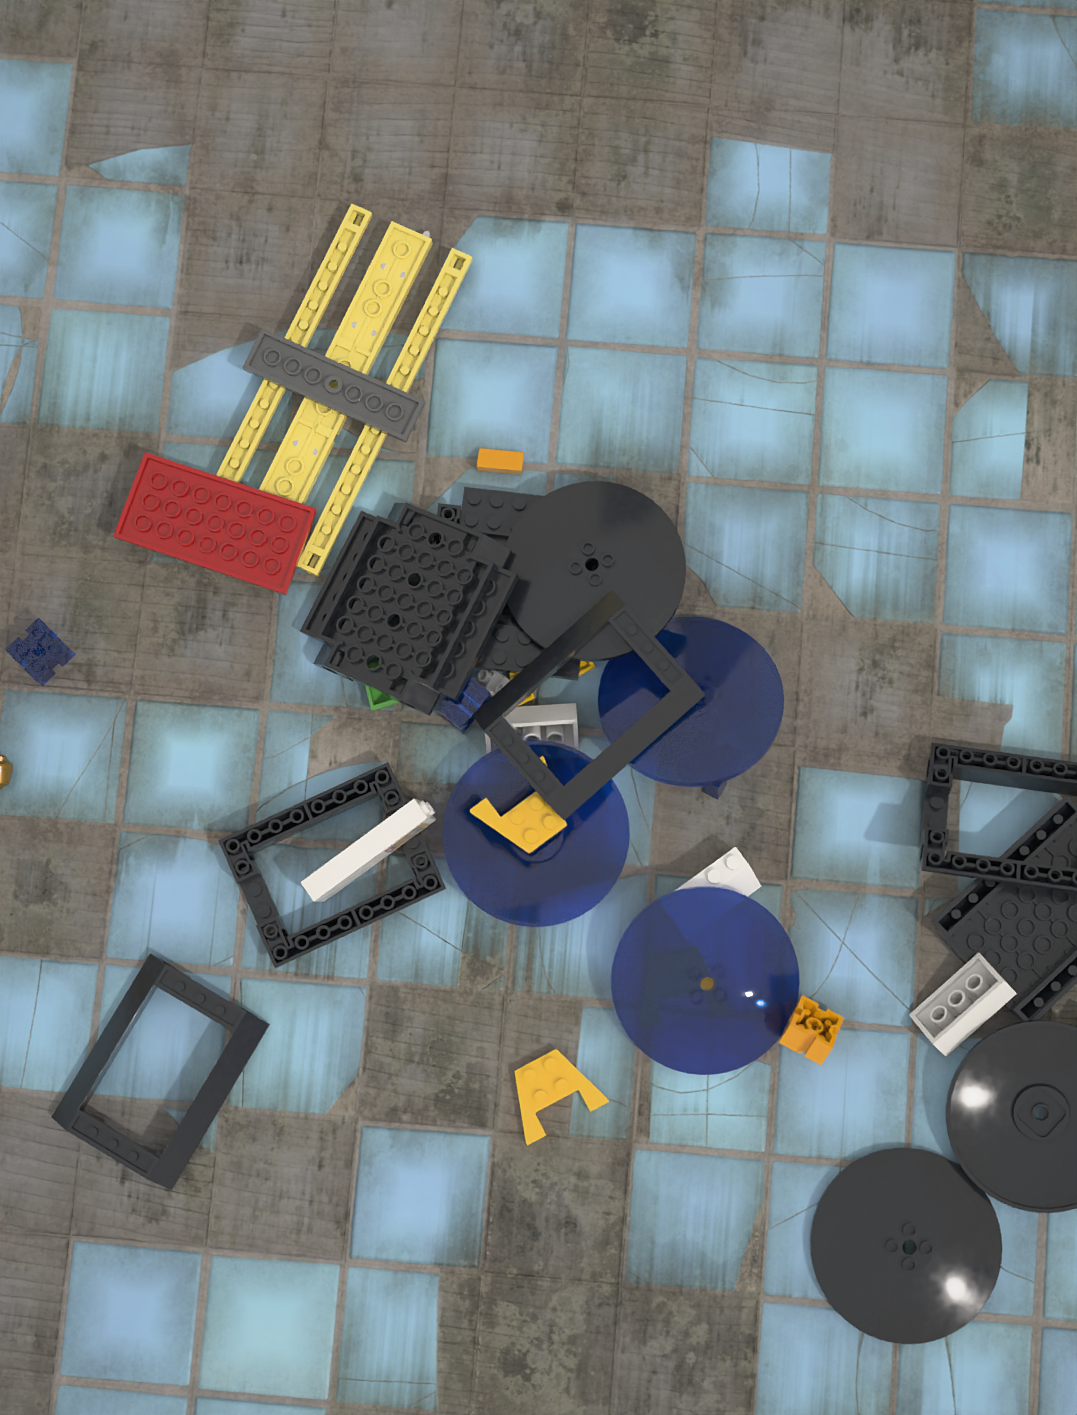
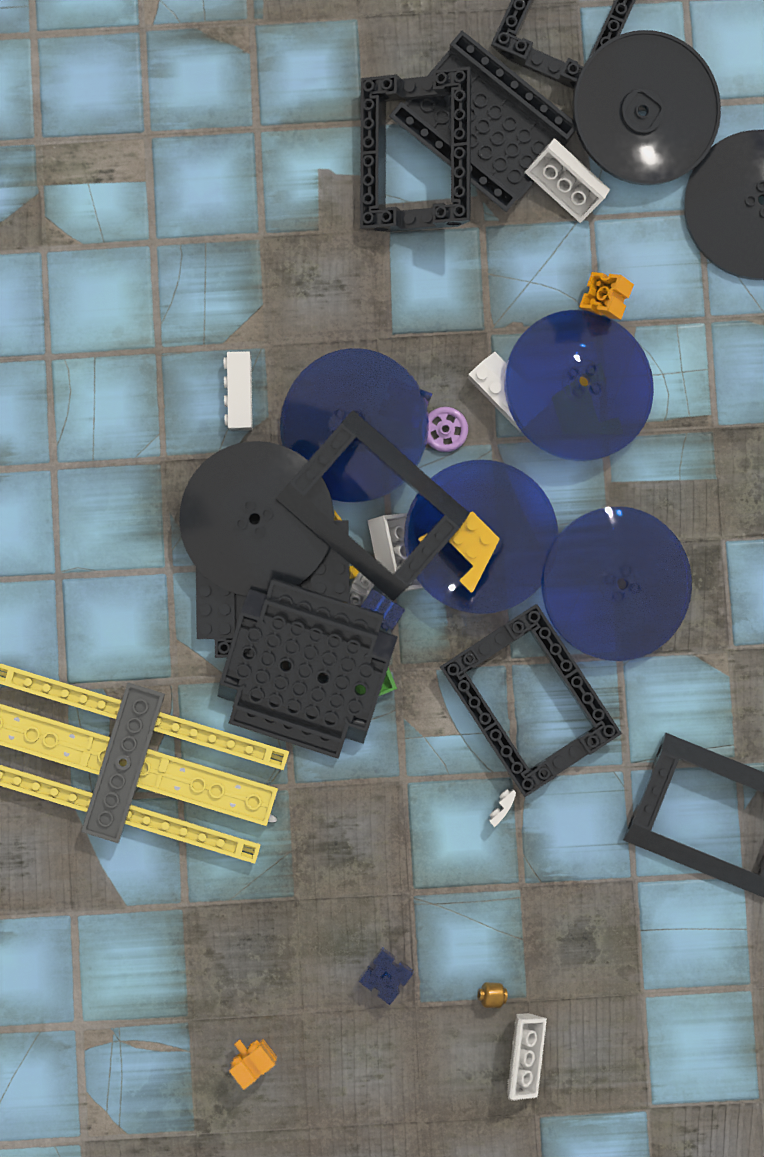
camera: 100 degrees left, 5 degrees up
(215, 523) = (257, 844): red plate -> none
(217, 819) = (505, 801): none -> white slope
(369, 850) = (515, 670): white brick -> none
(465, 947) = (583, 579): none -> clear blue dish
(500, 461) = (169, 612): light orange slope -> none
(546, 1082) = (676, 500): yellow wing -> none
(658, 824) = (457, 440): none -> lavender plate
(751, 574) = (239, 391): none -> white brick

